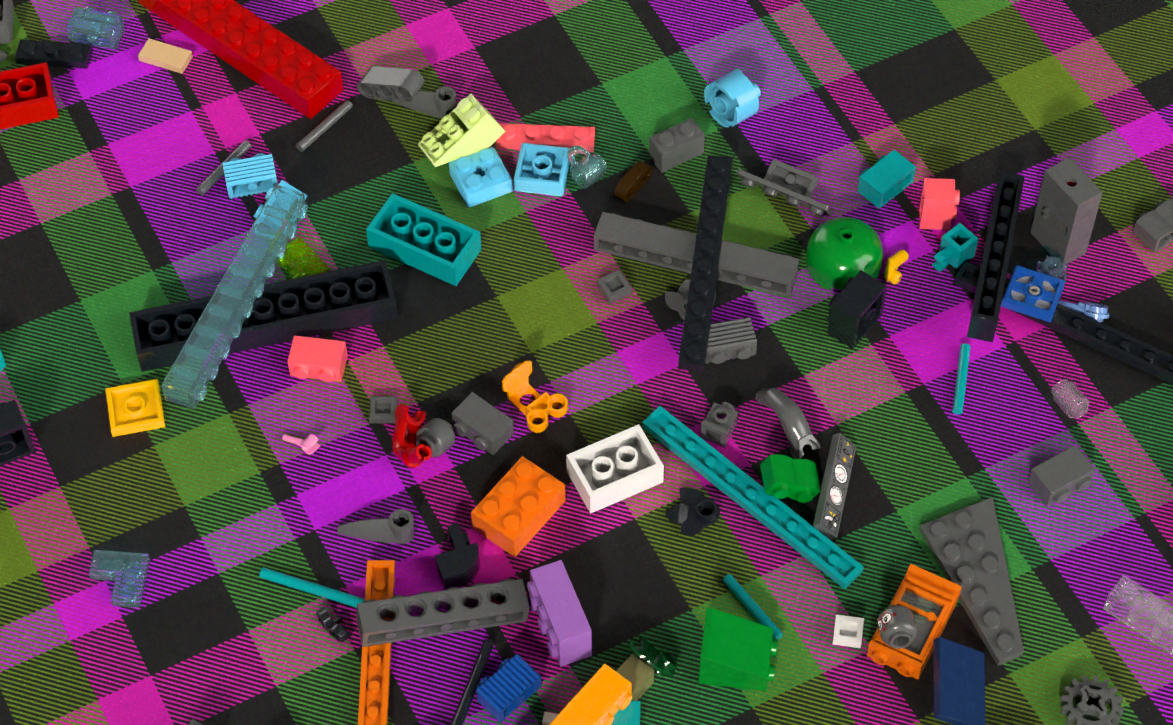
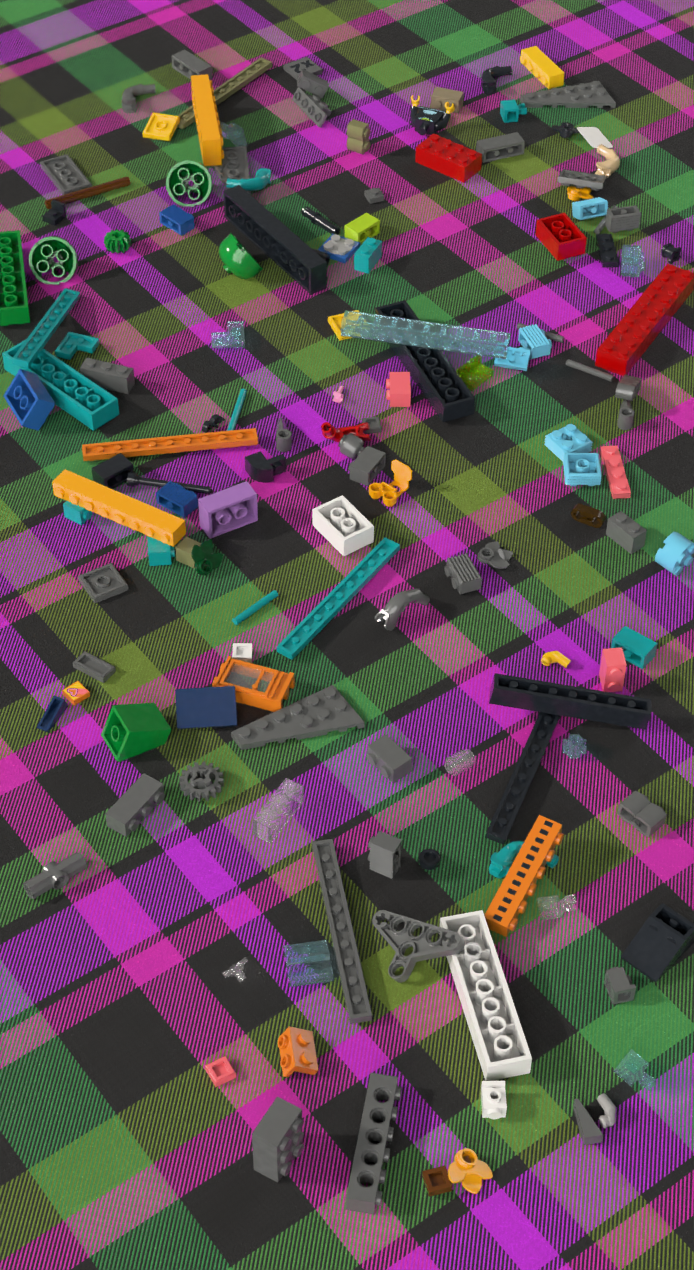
camera: 80 degrees right, 10 degrees down
(165, 56) = (622, 295): tan tile -> none
(424, 239) = (503, 419): teal brick -> none
(431, 622) = (218, 453): dark grey brick -> none
(461, 133) = (600, 426): yellowish green slope -> none
(518, 506) = (306, 486): orange brick -> none
(586, 170) = (589, 491): clear light blue piece -> none
(614, 286) = (494, 515): dark grey plate -> none
(675, 251) = (533, 554): dark grey brick -> none
(690, 511) = (322, 572): black plate -> none
(705, 264) = (520, 548): black plate -> none
(719, 423) = (393, 576): dark grey brick -> none
(736, 652) = (214, 592): green slope -> none
(788, 182) = (609, 594): dark grey bracket -> none
(790, 478) = (353, 610): green brick -> none
(834, 486) = (355, 637): dark grey tile -> none
(841, 250) = (556, 628): green cylinder -> none
(856, 308) = (502, 631): black brick -> none
(897, 626) = (237, 661): dark grey head -> none
(955, 248) = (577, 679): teal brick -> none
(961, 379) = (463, 703): teal bar -> none
(1033, 293) = (544, 729): blue piece -> none
(1066, 211) = (614, 729): dark grey brick -> none
(1093, 310) = (545, 773): medium blue plate -> none

